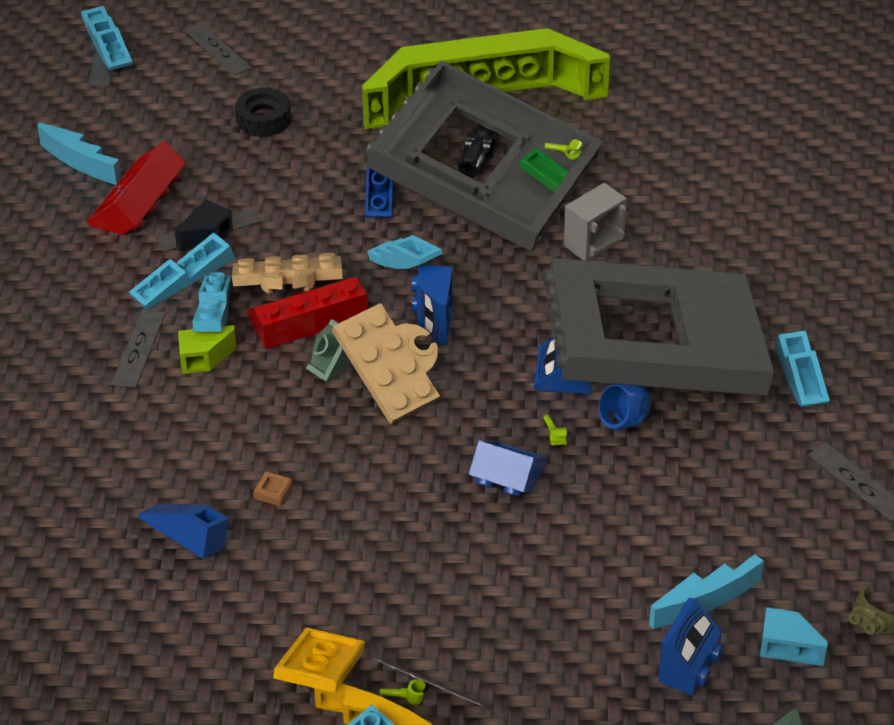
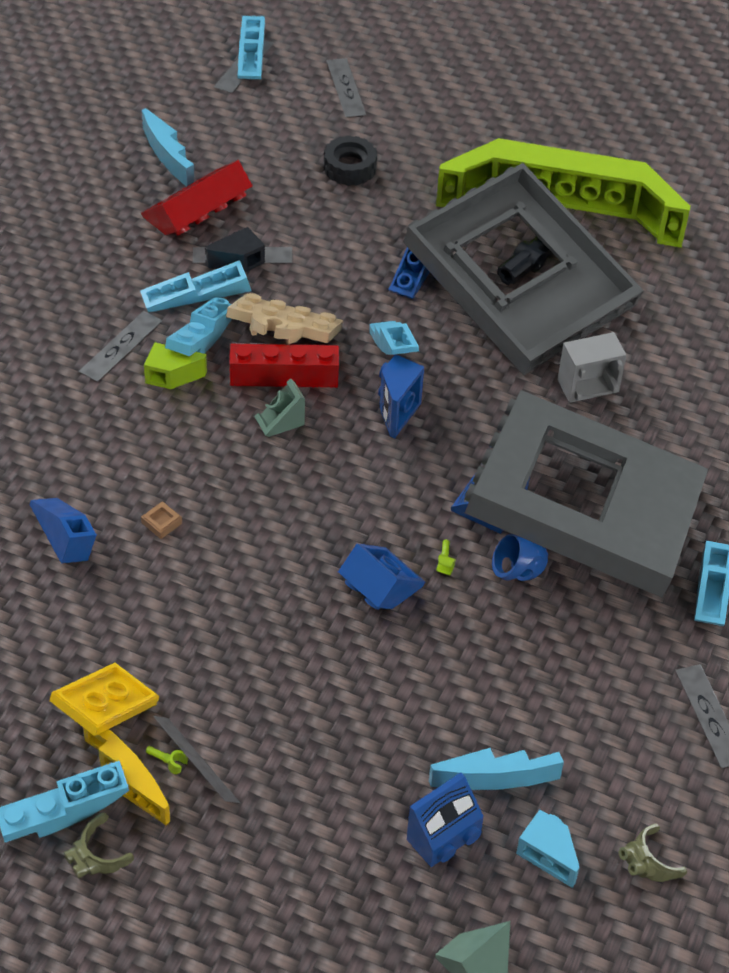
camera: 20 degrees right, 5 degrees up
(389, 361) = (325, 437): tan plate -> none
(543, 169) = (571, 298): green tile -> none
(571, 151) = (605, 290): lime hand -> none

